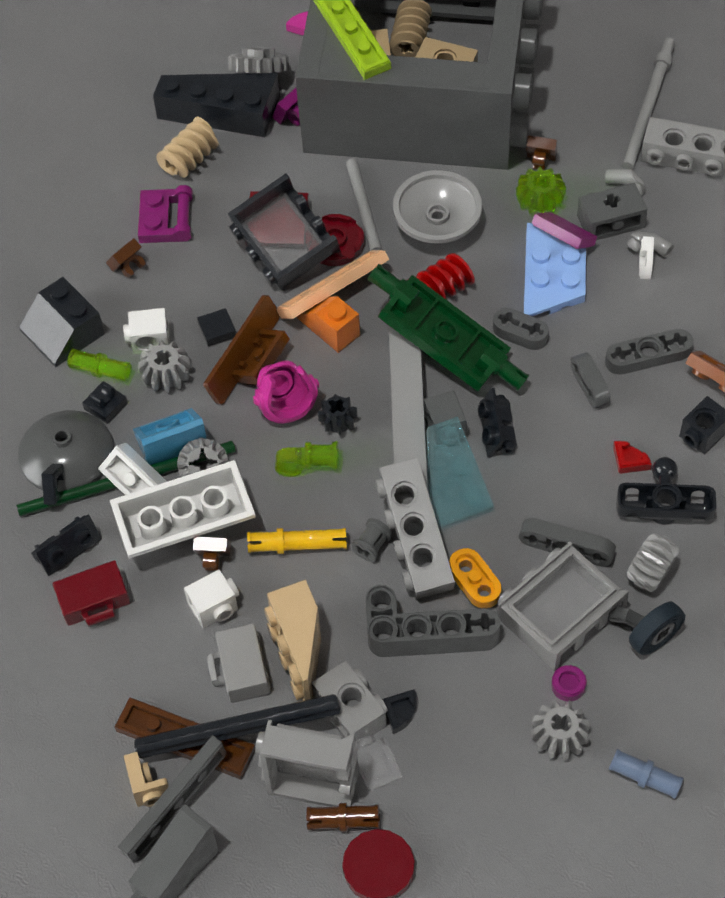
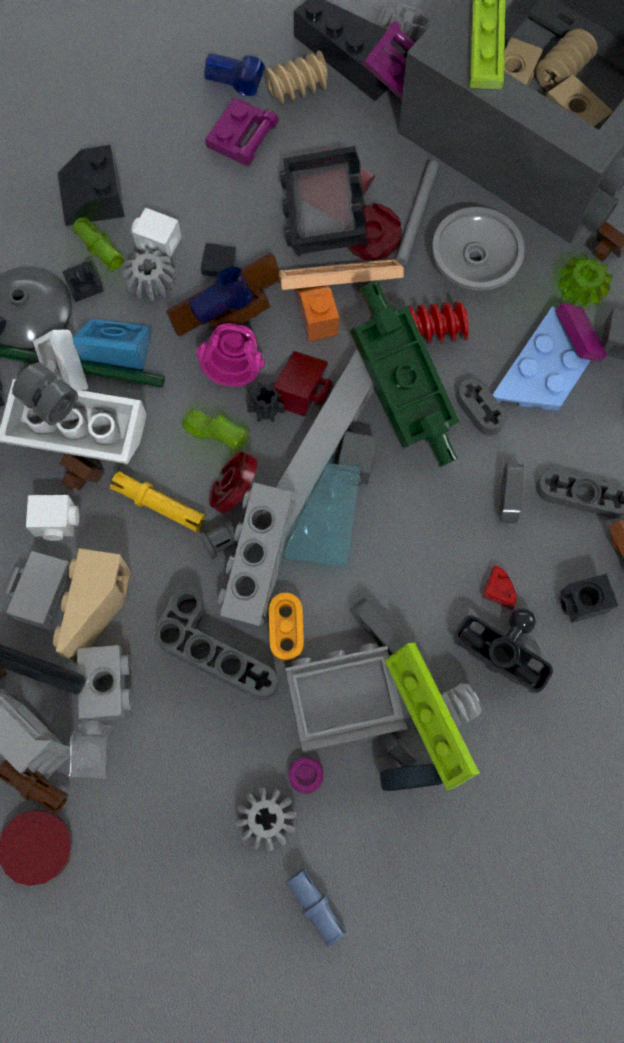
camera: 25 degrees right, 15 degrees up
(125, 256) = (181, 152): reddish brown tile -> none
(136, 168) = (241, 74): none -> clear blue piece
(141, 491) = (40, 390): none -> dark grey wheel
(191, 453) = (136, 376): light grey gear -> none
(249, 342) = (228, 292): none -> clear blue piece
(270, 98) = (387, 61): none -> magenta plate
(355, 384) = (301, 381): none -> dark red piece
(355, 486) = (236, 481): none -> dark red tile
(400, 710) = (146, 712): black tile -> none
(495, 412) = (404, 476): black hinge -> none
(642, 567) = (431, 717): none -> lime tile

